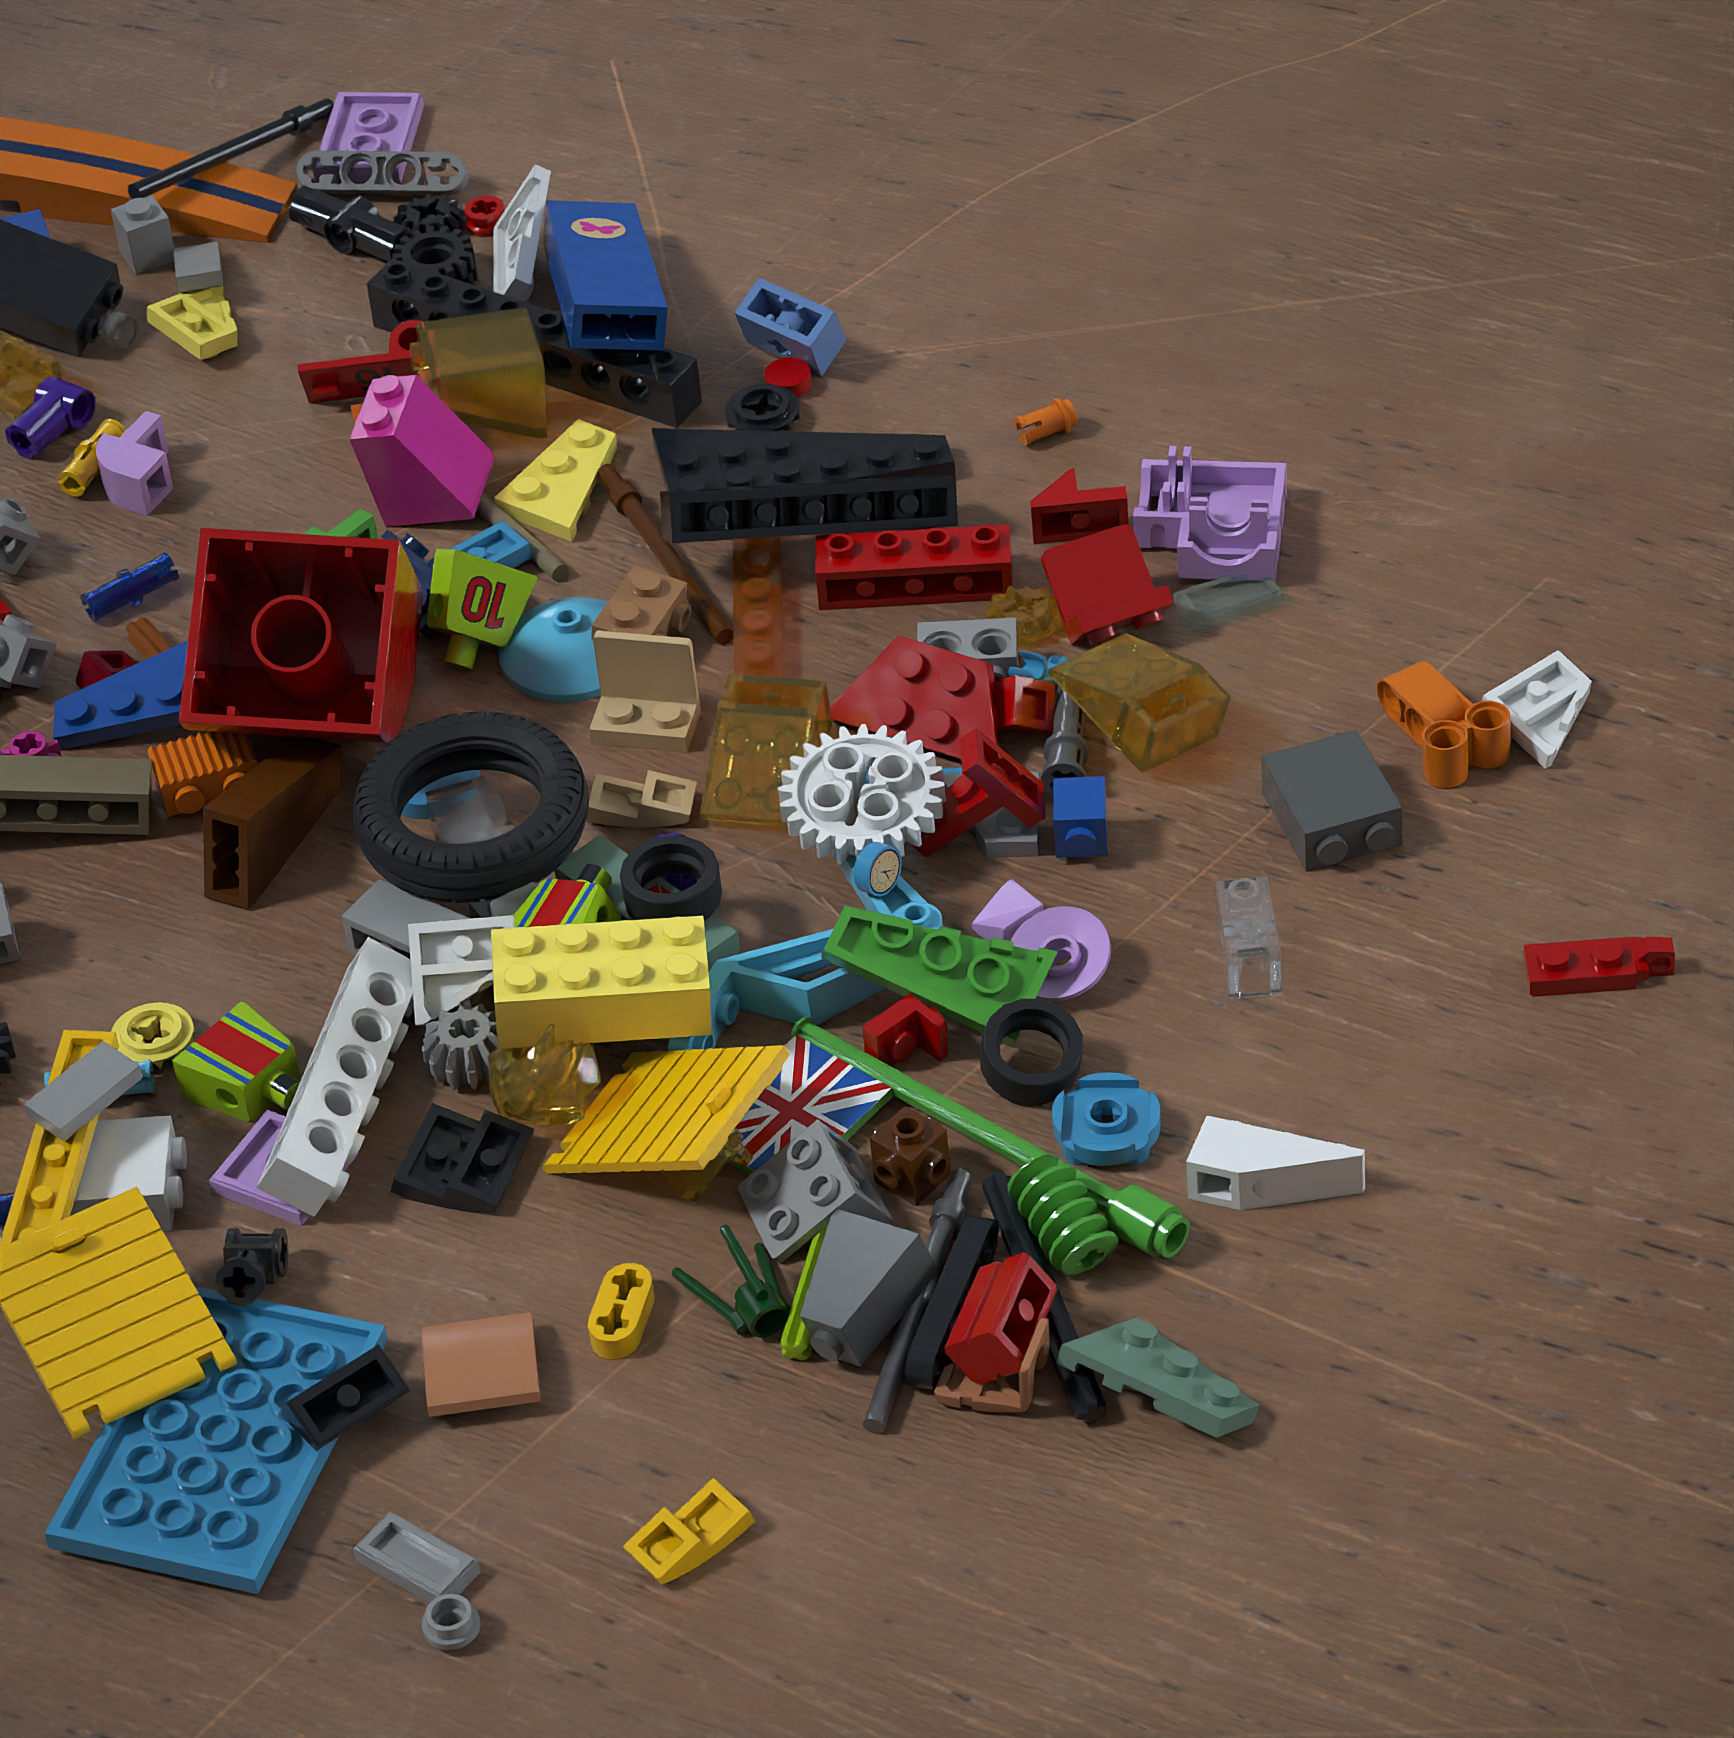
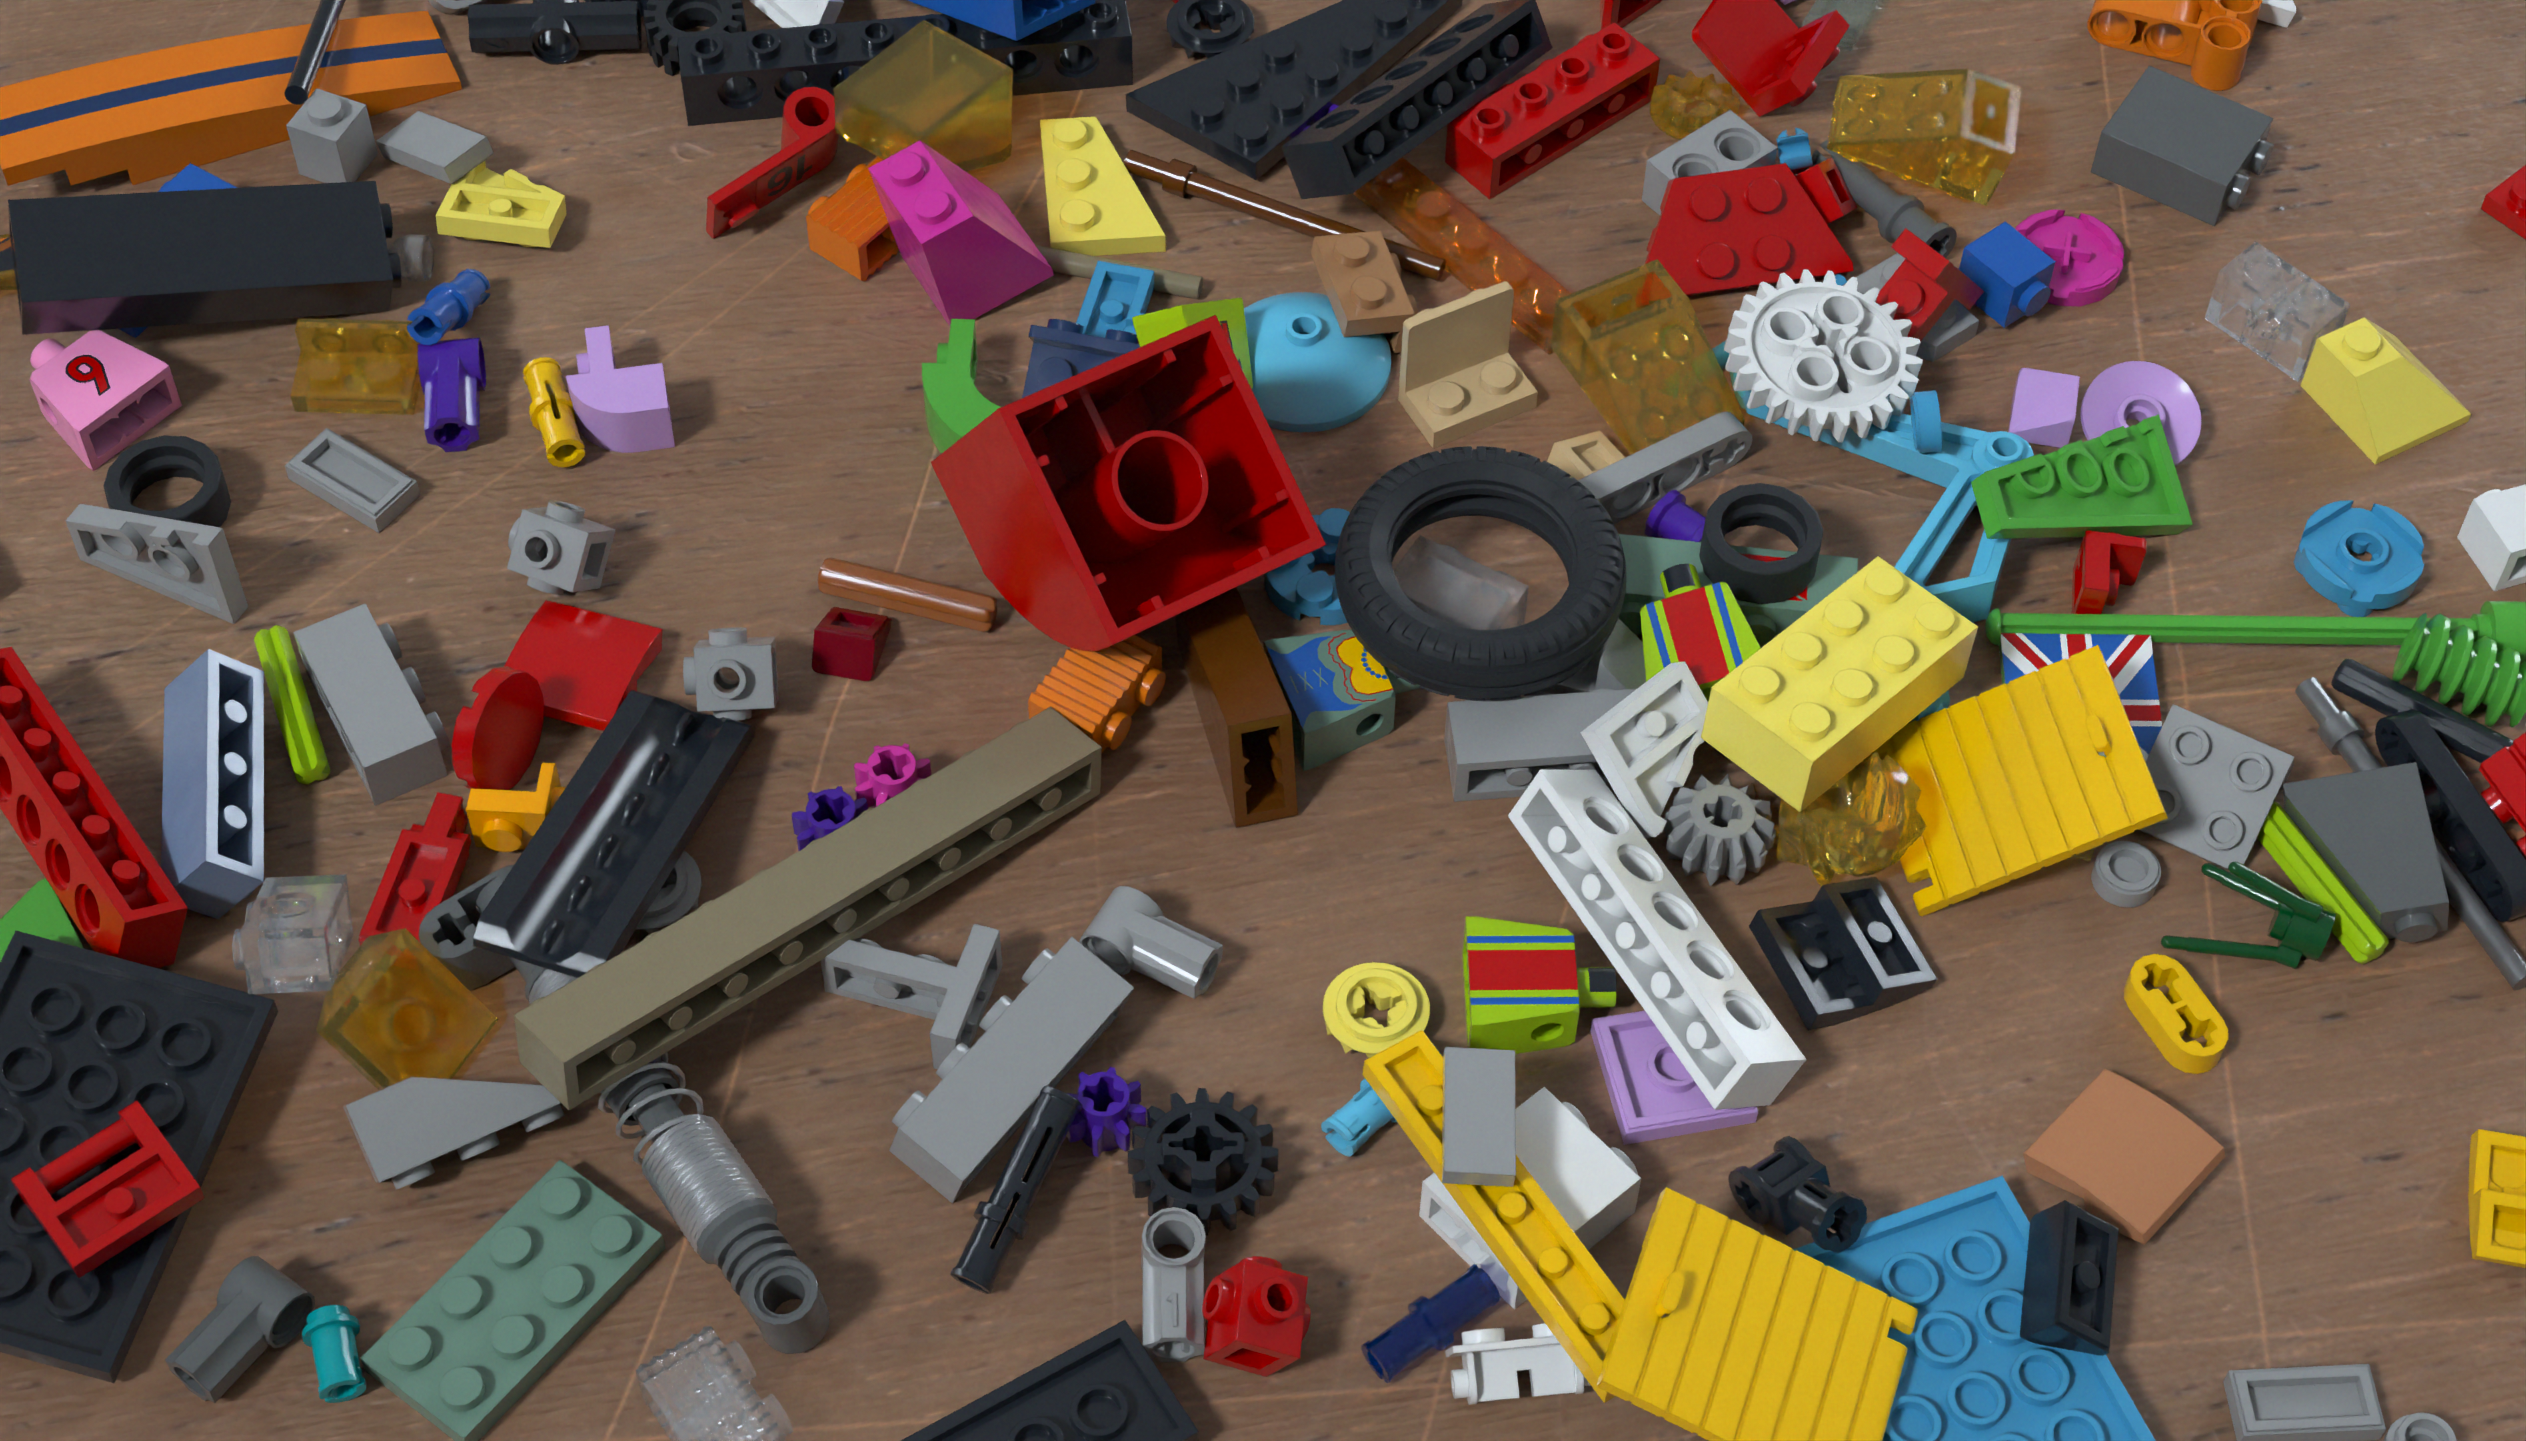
camera: 45 degrees left, 10 degrees up
(68, 924) = (1136, 936): none -> light grey piece
(93, 363) = (448, 307): none -> blue pin
(124, 704) = (929, 653): blue wing -> none
(129, 587) = (767, 533): clear blue pin -> none
(323, 848) = (1334, 693): none -> torso
(686, 816) = (1669, 465): none -> light grey beam
(698, 1219) = (2126, 874): none -> light grey tile
(910, 1155) = (2258, 690): reddish brown brick -> none
(1045, 1018) = (2263, 507): black tyre -> none
(1161, 836) = (2085, 255): none -> dark pink tile
(1269, 1025) = (2379, 391): none -> light yellow slope

